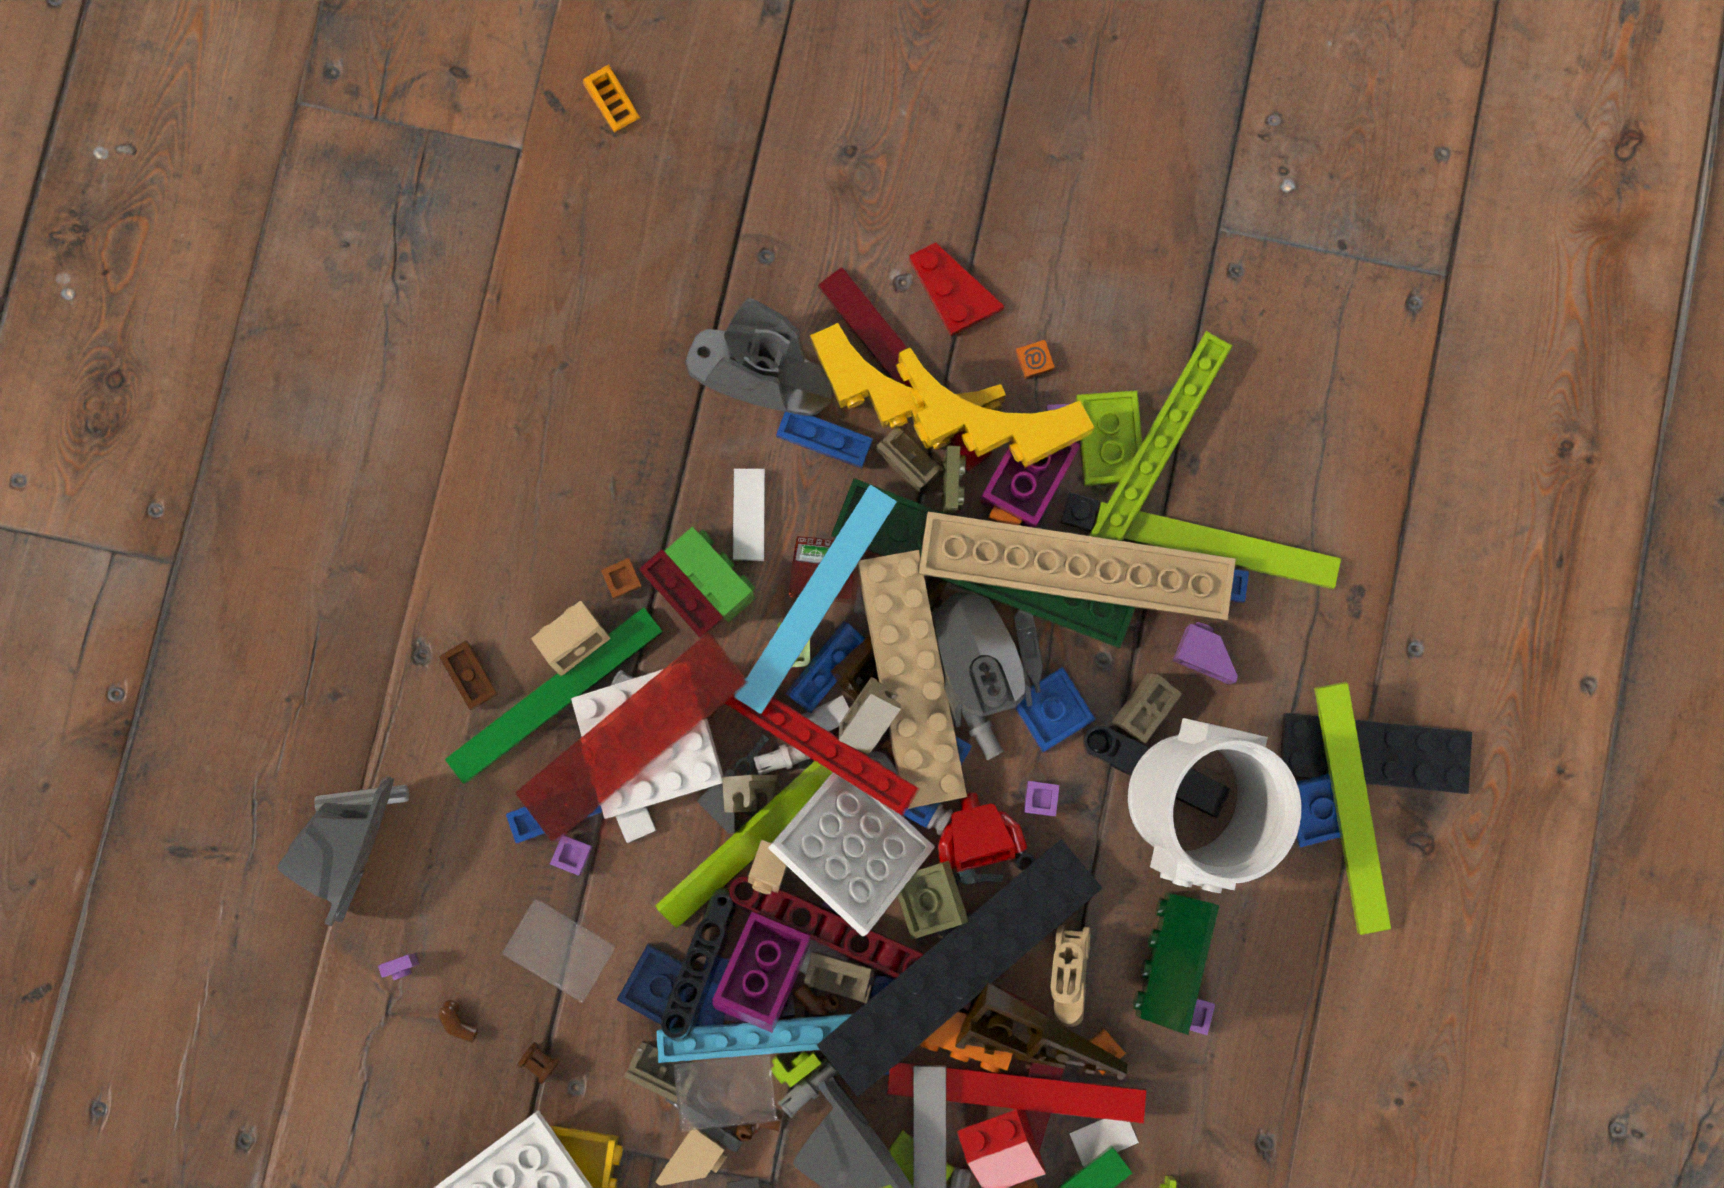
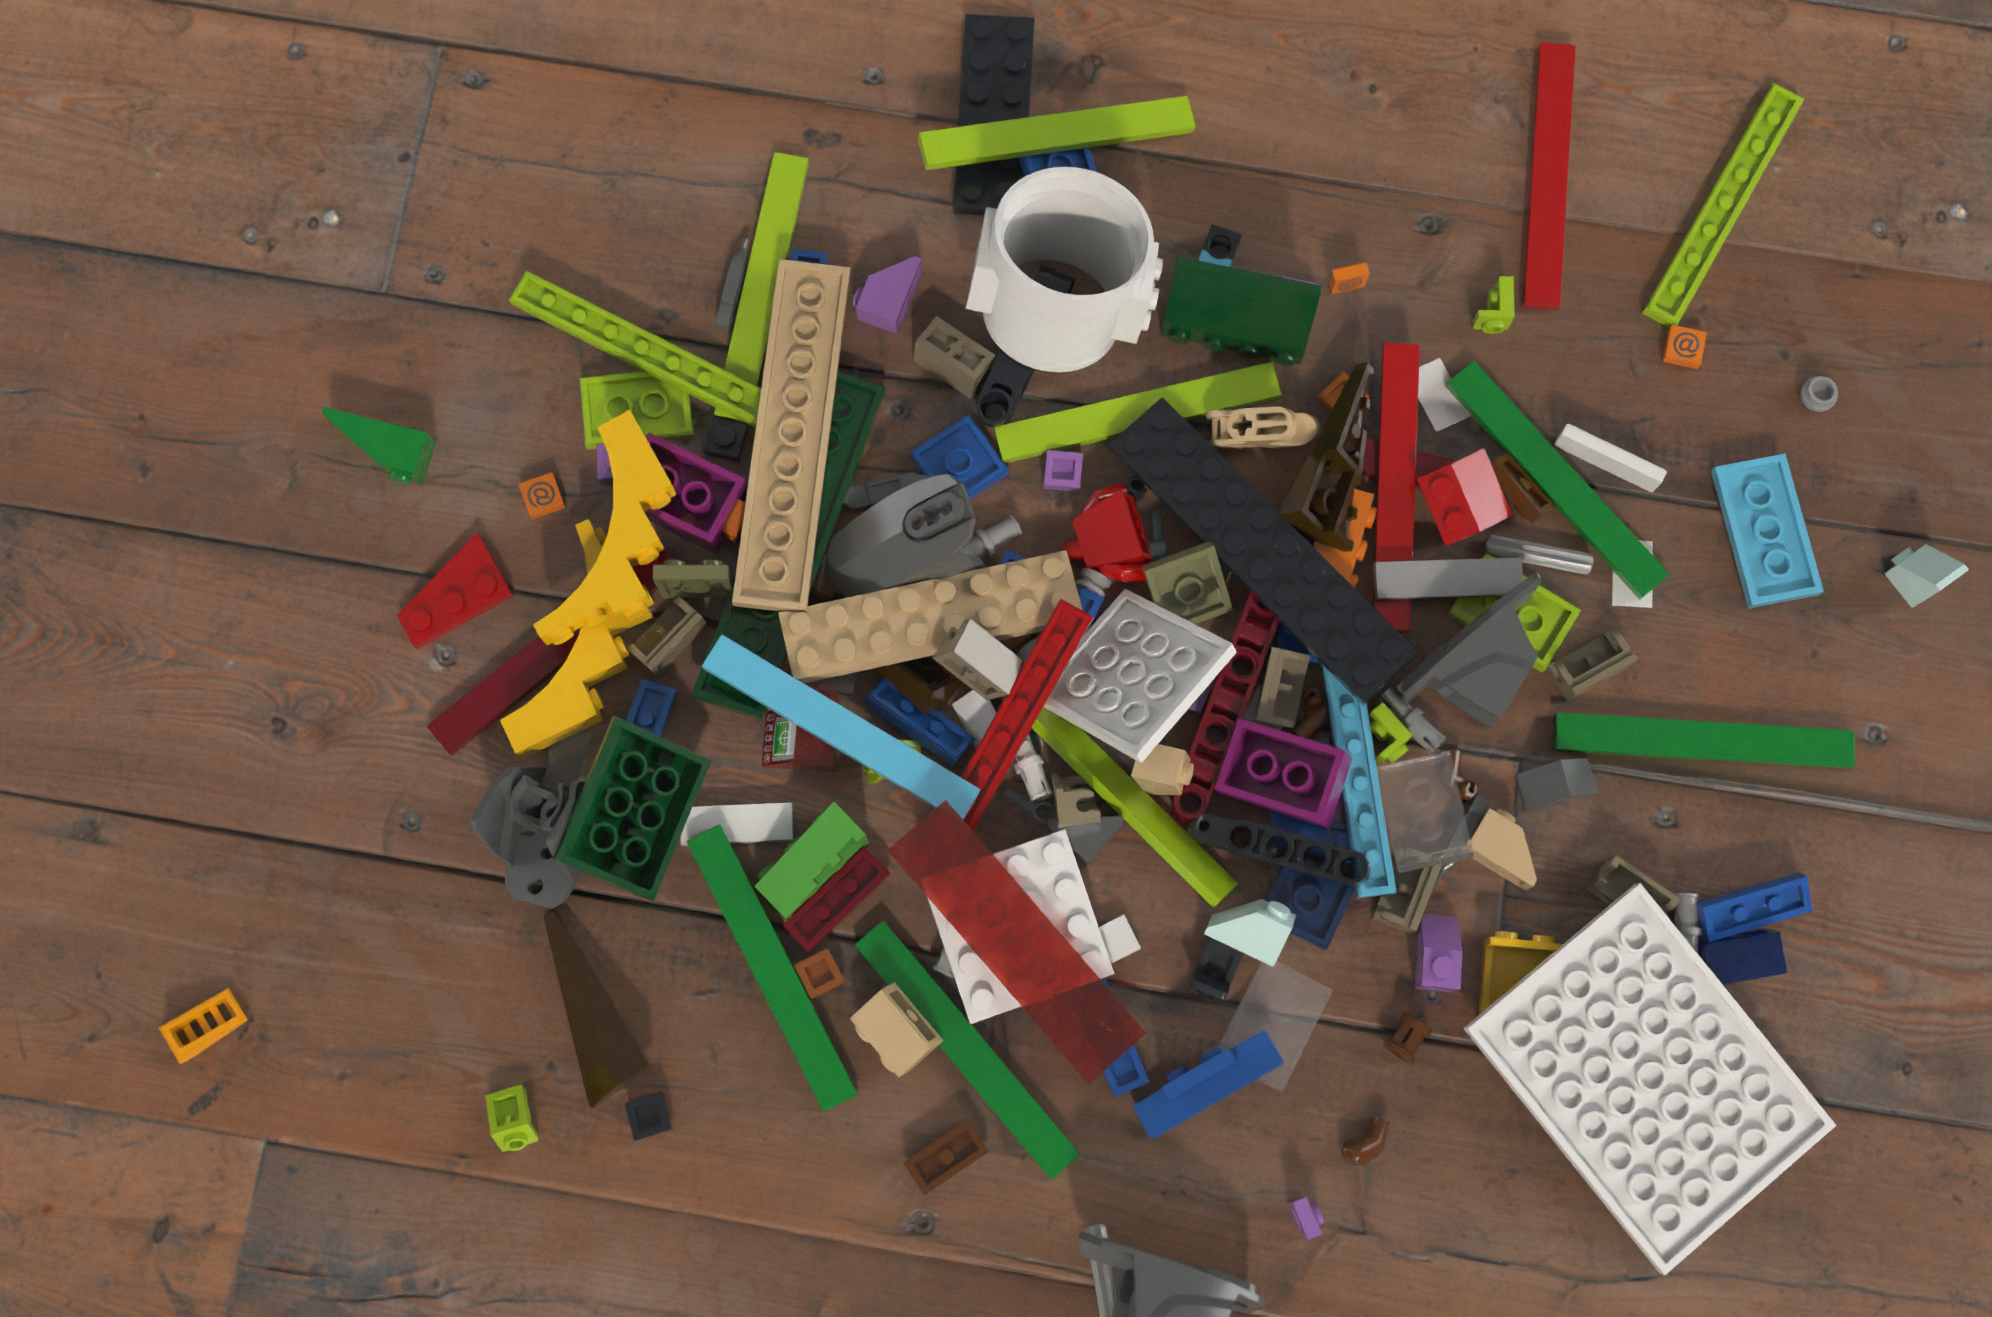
camera: 90 degrees left, 5 degrees down
(510, 892) = (1208, 1083): none -> blue bracket
(516, 440) = (648, 1116): none -> black plate
(522, 333) = (510, 1118): none -> lime bracket
(571, 855) = (1159, 1014): medium lavender plate -> none
(579, 405) = (602, 1040): none -> dark brown wedge
(605, 905) = (1215, 969): none -> black bracket
(606, 1095) = (1438, 954): none -> medium lavender slope
(628, 539) = (772, 968): none -> green tile
(635, 937) = (1254, 929): none -> light aqua slope
(757, 428) = (632, 809): none -> dark green slope
(1078, 234) = (394, 448): none -> green slope
(1090, 849) = (1112, 417): none -> lime tile
(1212, 1064) = (1348, 278): none -> orange tile
(1215, 520) = (732, 289): none -> dark grey piece
(1235, 946) = (1220, 246): none -> black leg

